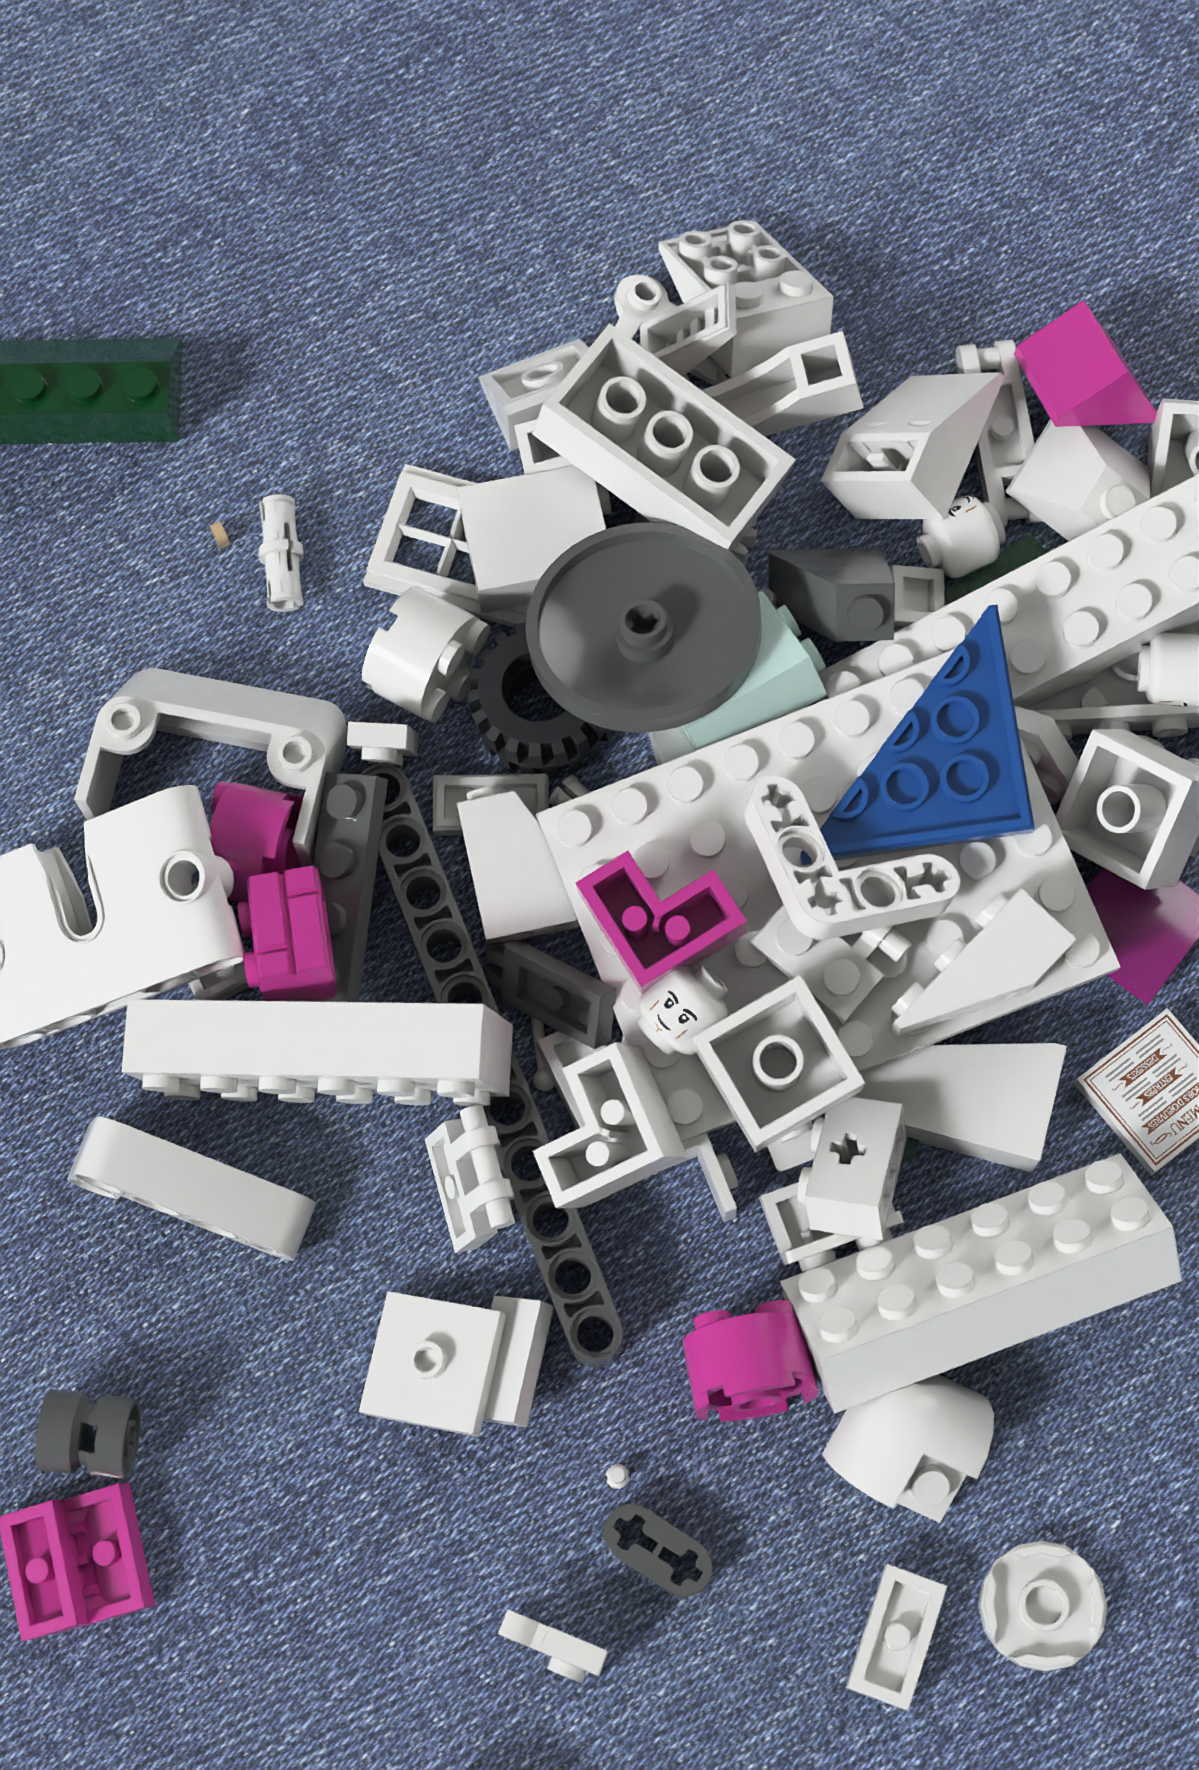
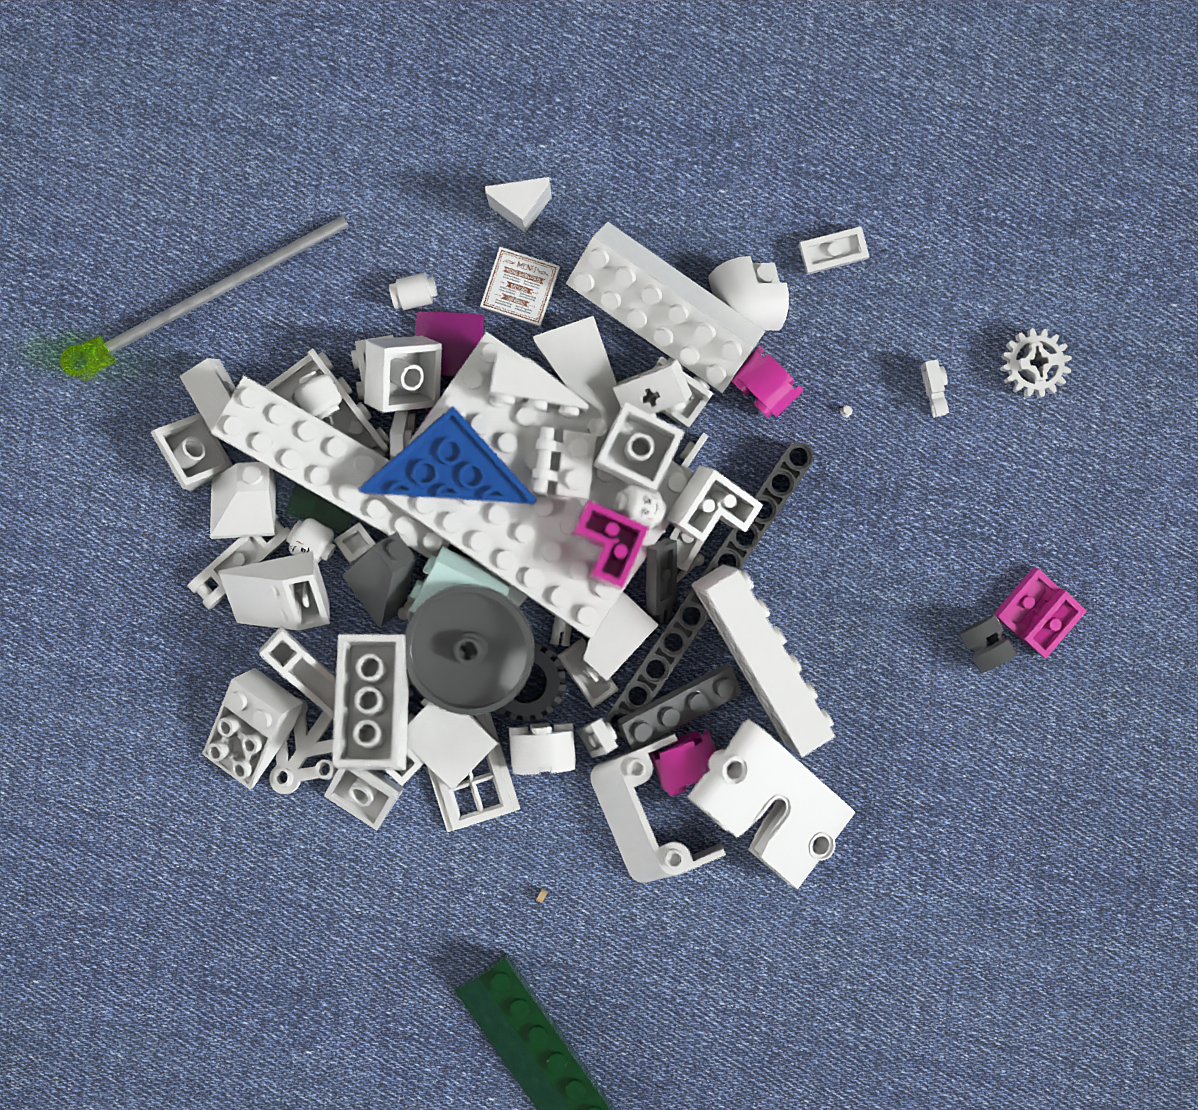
camera: 125 degrees left, 15 degrees up
(191, 1187) = (857, 676): white beam -> none
(281, 553) = (532, 858): white pin -> none
(289, 936) = (724, 707): dark pink brick -> none
(433, 1363) = (856, 519): white plate -> none
(470, 1179) = (770, 556): white plate -> none
(517, 1359) = (832, 487): white tile -> none
(666, 1537) = (874, 372): dark grey beam -> none
(669, 333) = (303, 751): white slope -> none
(838, 888) = (545, 473): white beam -> none
(1042, 1606) = (778, 199): white tile -> none
(1082, 373) = (189, 536): dark pink slope -> none

